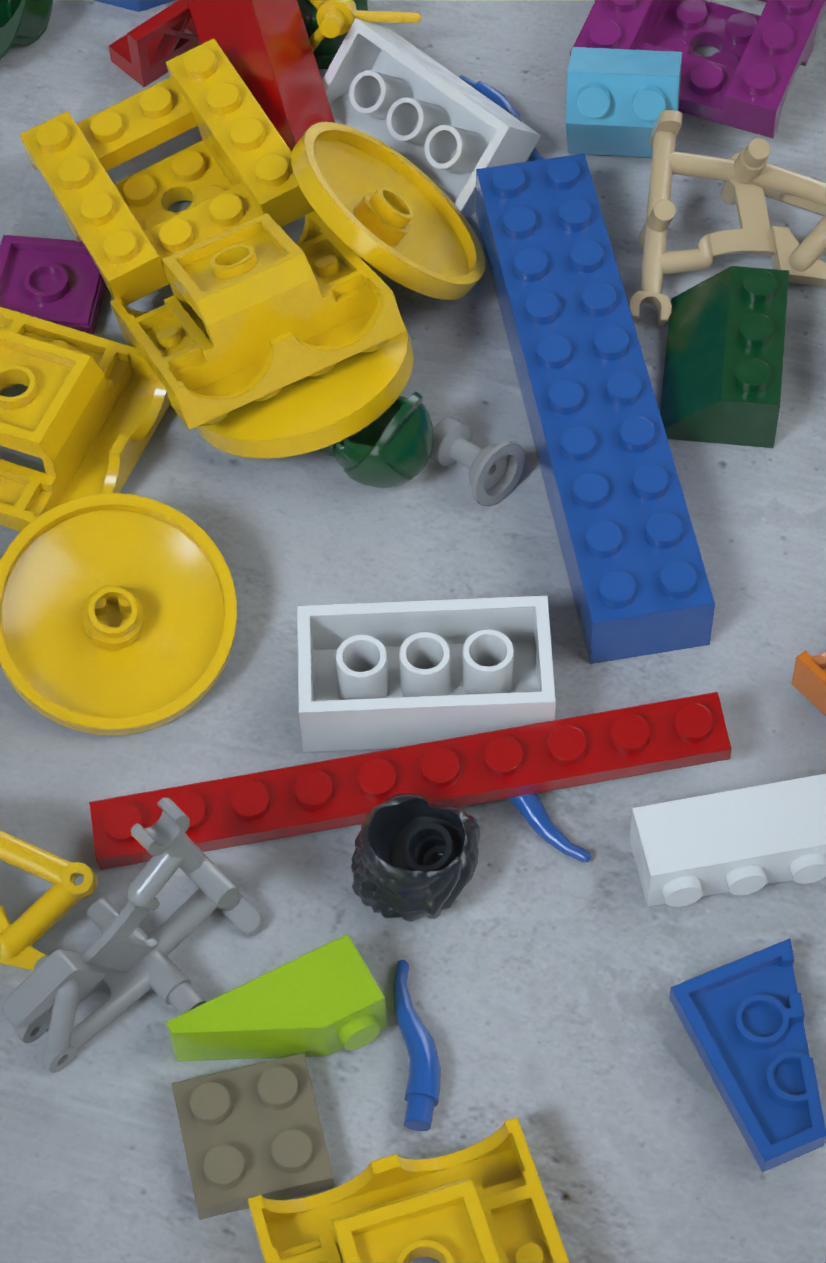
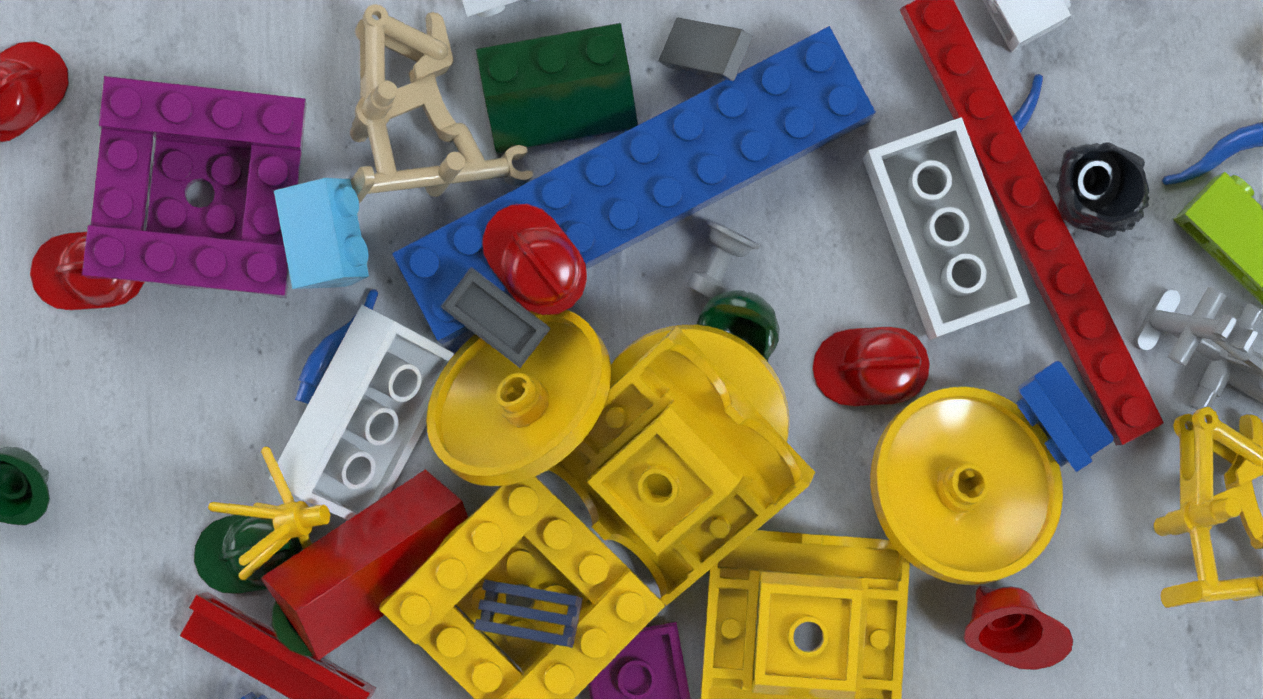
camera: 110 degrees left, 30 degrees up
(144, 161) = (490, 606): none -> dark blue tile
(149, 738) = (1066, 415): none -> blue bracket
(288, 573) = (871, 366): none -> red piece
(480, 209) = (495, 317): none -> dark grey tile
(529, 256) = (534, 259): none -> red piece
(725, 490) = (705, 48): none -> dark grey tile

